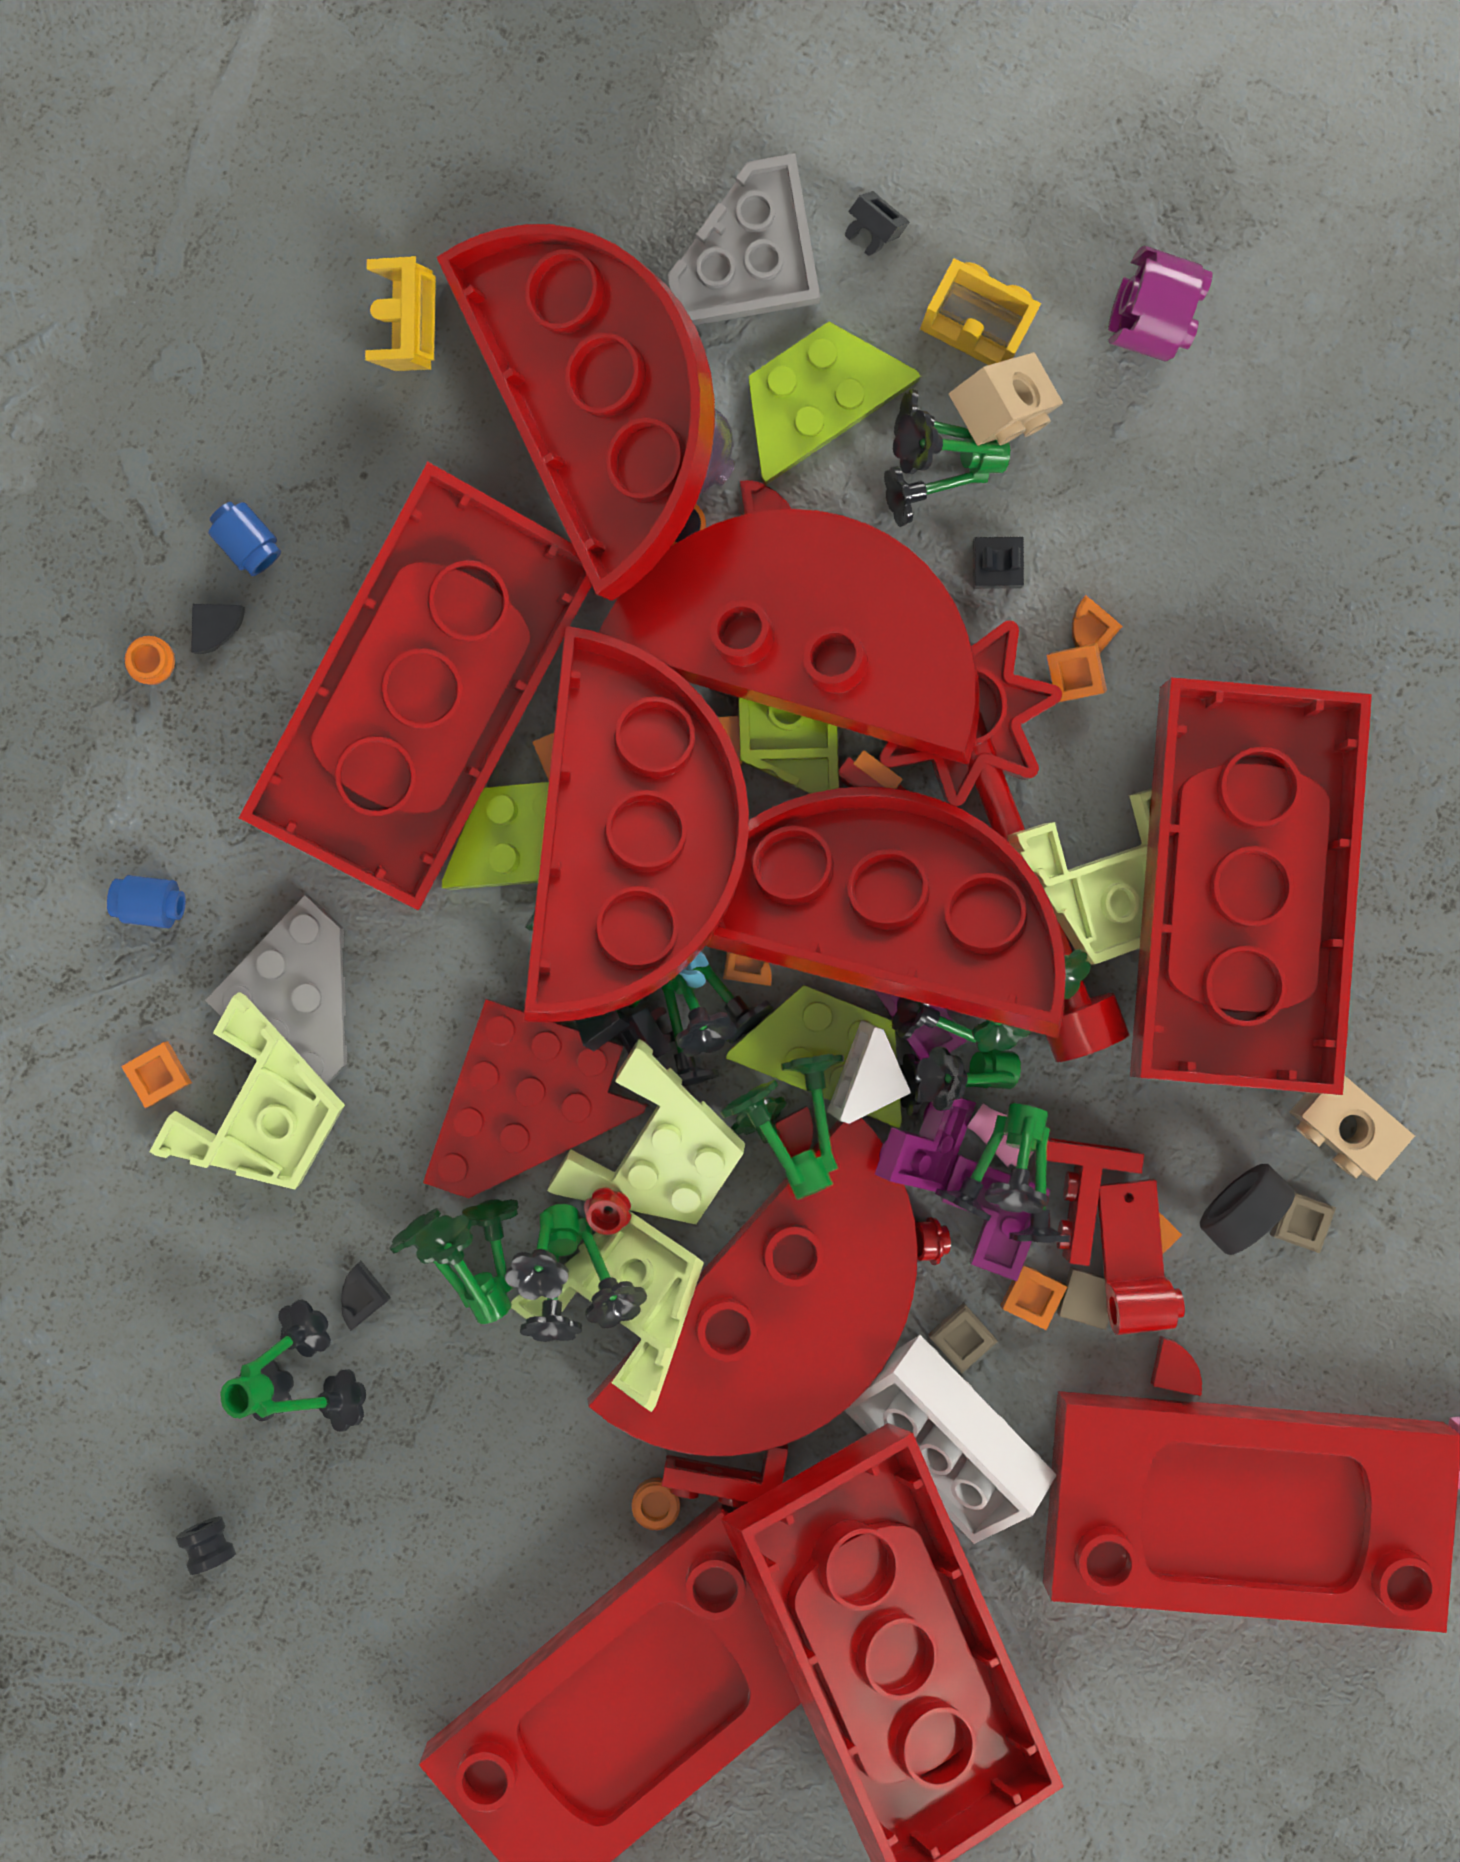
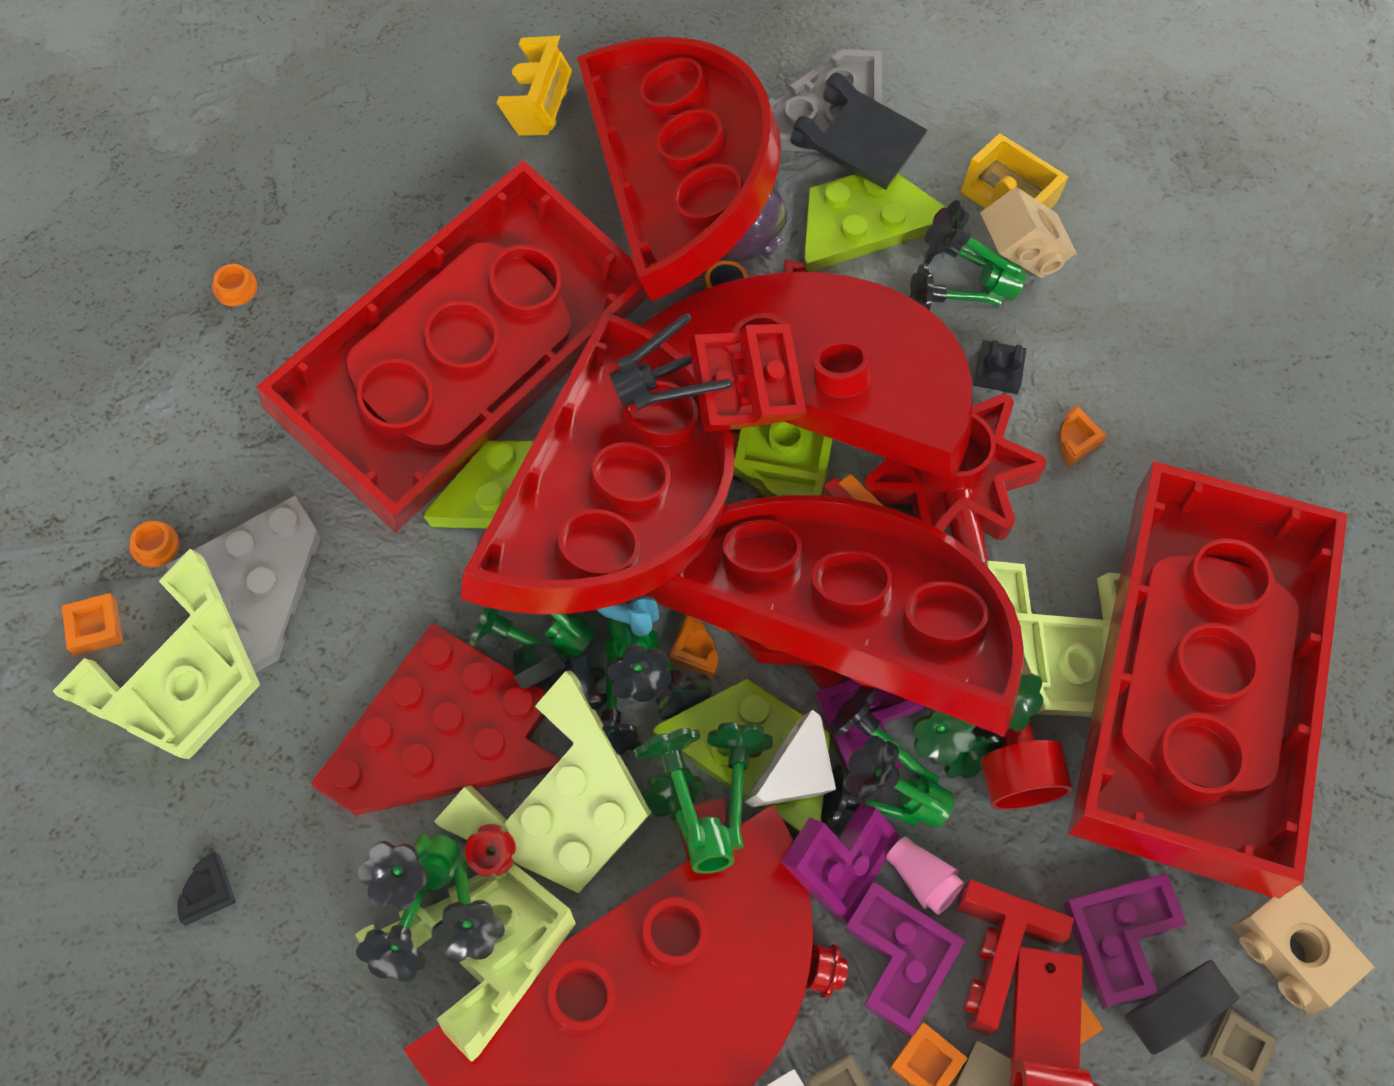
camera: 10 degrees right, 25 degrees down
(146, 901) = (147, 468): blue brick -> none
(184, 979) = (154, 544): none -> orange plate
(214, 625) = (300, 272): black tile -> none
(244, 537) = (351, 213): blue brick -> none
(265, 1388) = (68, 962): black plant -> none
(443, 1241) = (329, 913): plant -> none
(626, 723) = (636, 381): none -> black plant
(739, 693) = (763, 376): none -> red slope
(802, 296) = (862, 136): none -> black flag
(878, 218) = (939, 105): black tile -> none
(1026, 1132) = (931, 905): plant -> none
(1077, 672) = (1064, 462): orange tile -> none
(1158, 304) = (1169, 198): magenta brick -> none
(1178, 1147) = (1110, 930): none -> magenta plate

